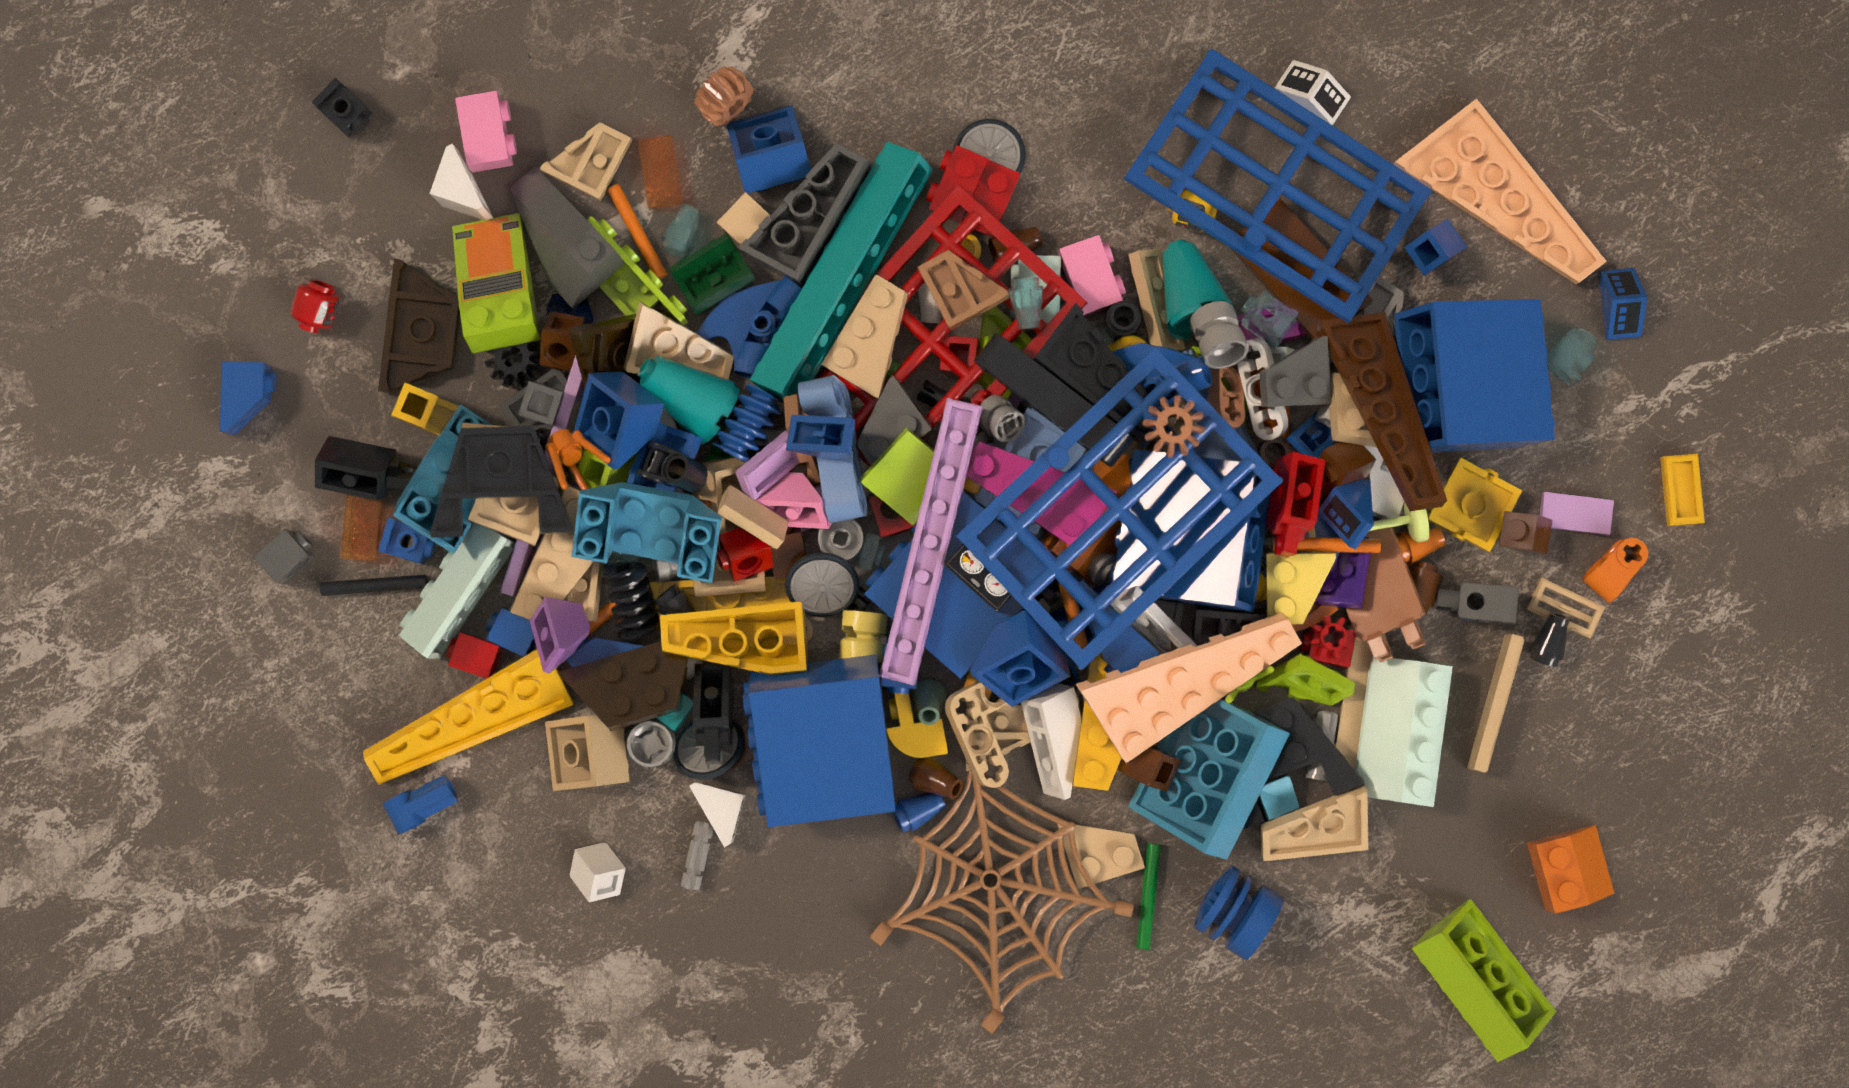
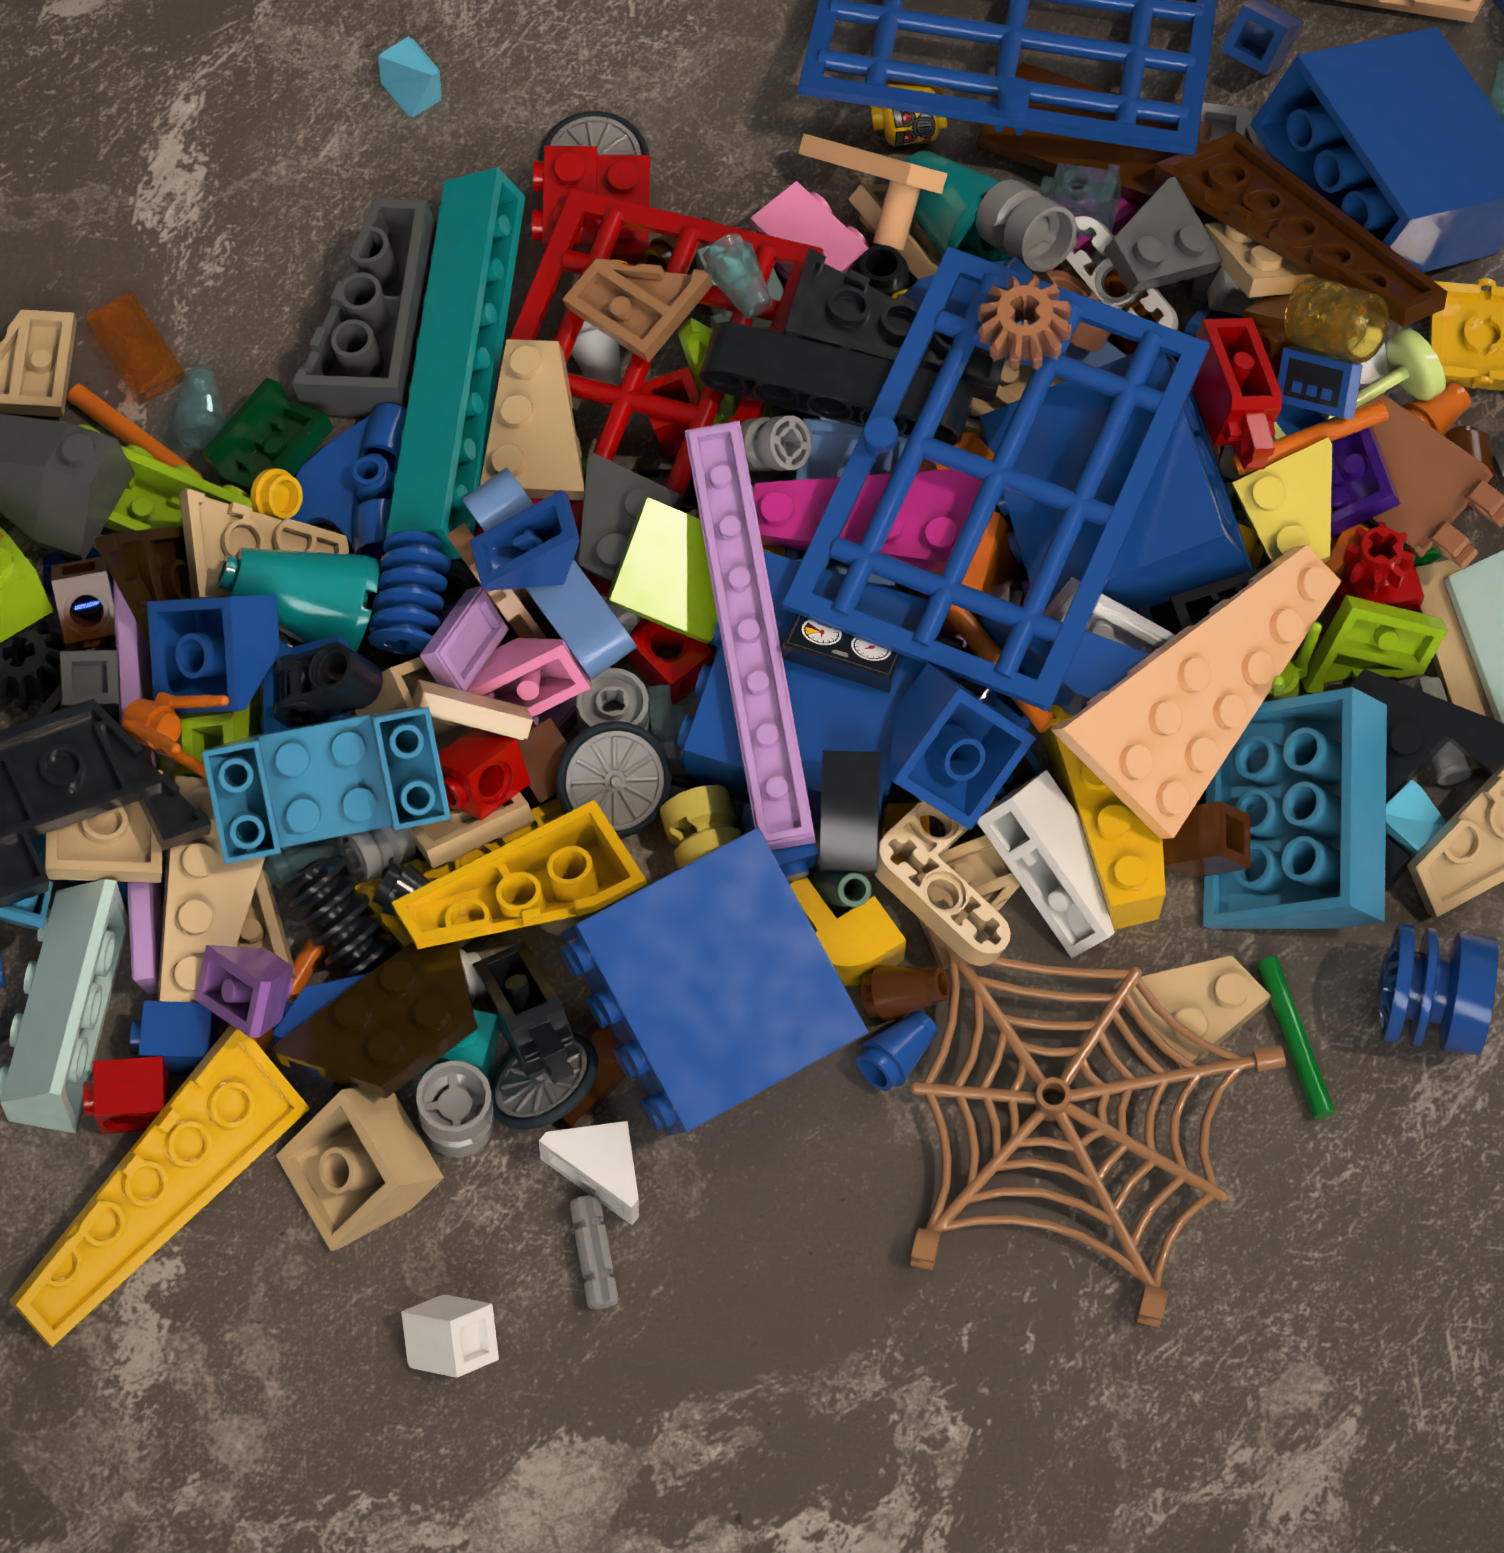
camera: 25 degrees left, 20 degrees down
(413, 807) = (119, 1360): blue piece -> none
(700, 316) = (276, 494): none -> yellow plate
(724, 96) = (187, 208): nougat gear -> none
(742, 218) = (279, 351): tan panel -> none
(769, 149) = (282, 259): blue slope -> none
(898, 54) = (410, 77): none -> medium azure slope
(943, 674) = (850, 811): none -> black slope
(1153, 248) = (903, 189): none -> light nougat piece
(1372, 487) = (1336, 319): none -> clear yellow wheel

